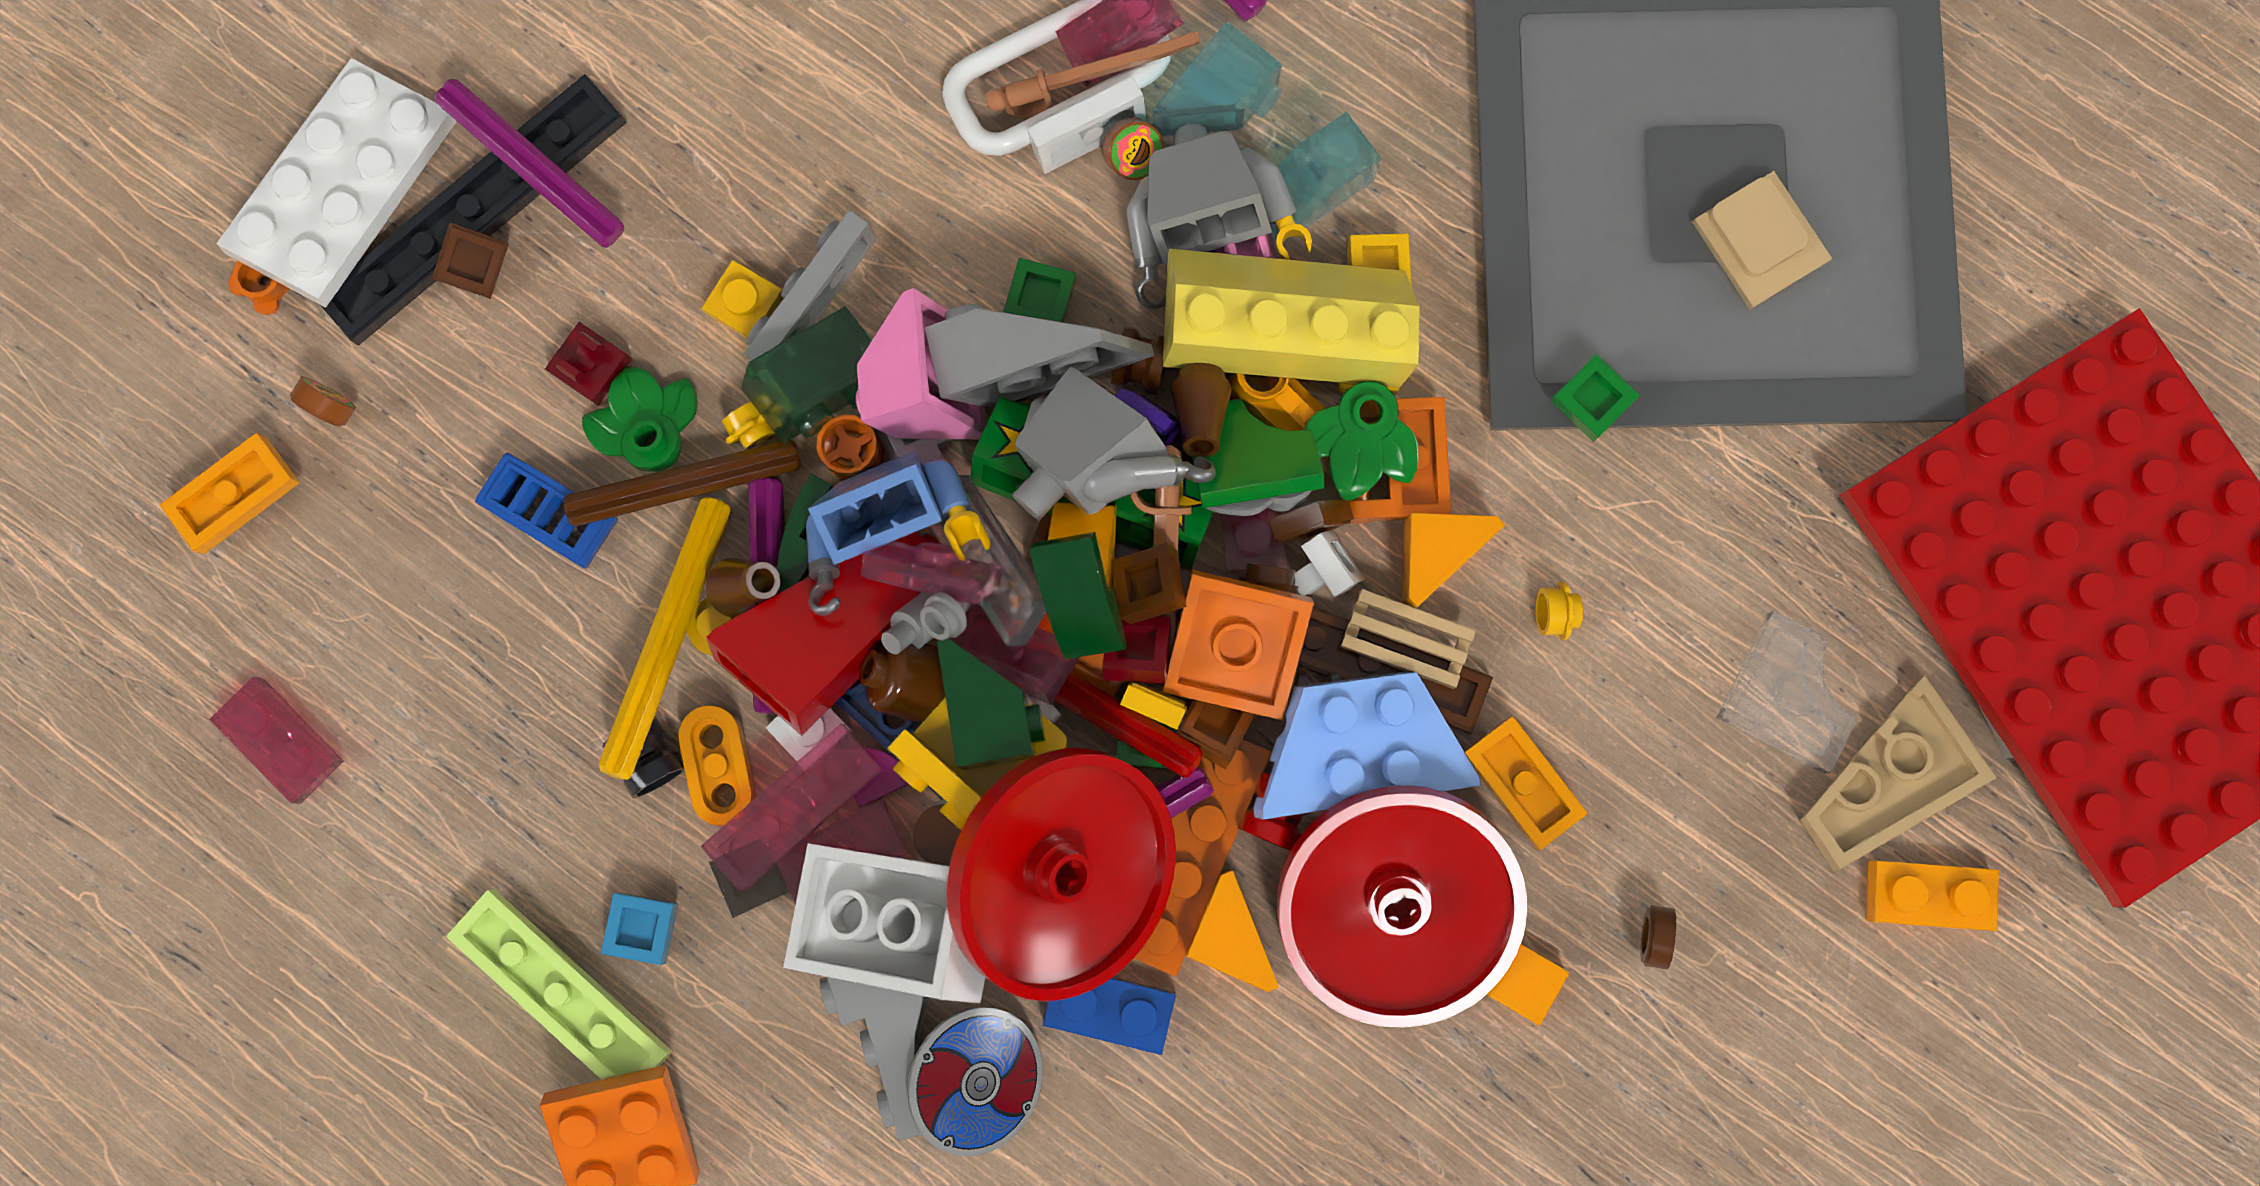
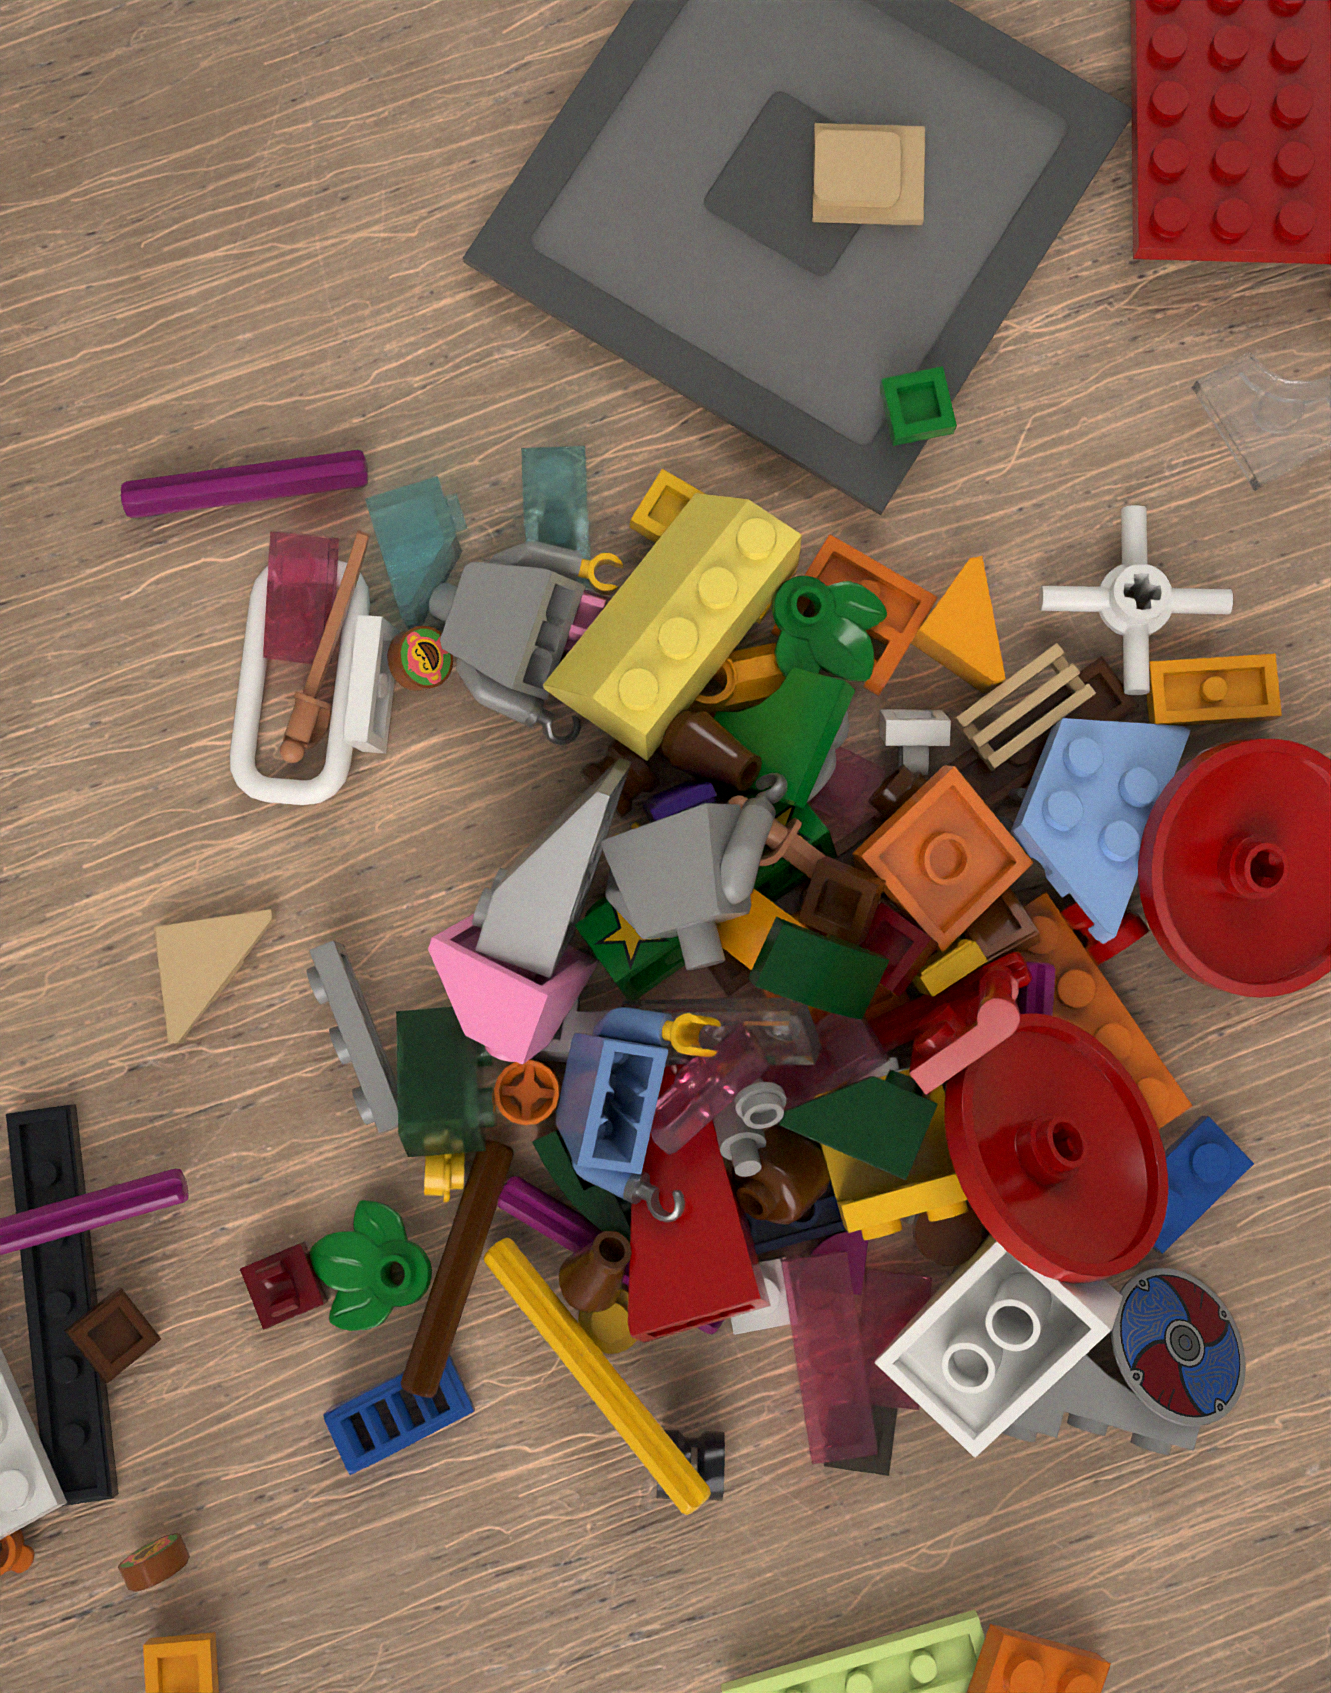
camera: 60 degrees left, 0 degrees up
(639, 928) = (845, 1569): dark azure plate -> none
(713, 767) = (738, 1405): light orange plate -> none
(741, 299) = (320, 1103): yellow plate -> none
(792, 141) = (200, 961): none -> tan tile
(1040, 291) = (498, 829): green plate -> none
(1098, 737) = (961, 1035): none -> red plate
(1229, 939) = (1191, 1036): light orange slope -> none
(1311, 520) = (866, 721): reddish brown tile -> none
(1558, 611) = (1079, 561): yellow plate -> none
(1573, 685) = (1149, 587): none -> white bar

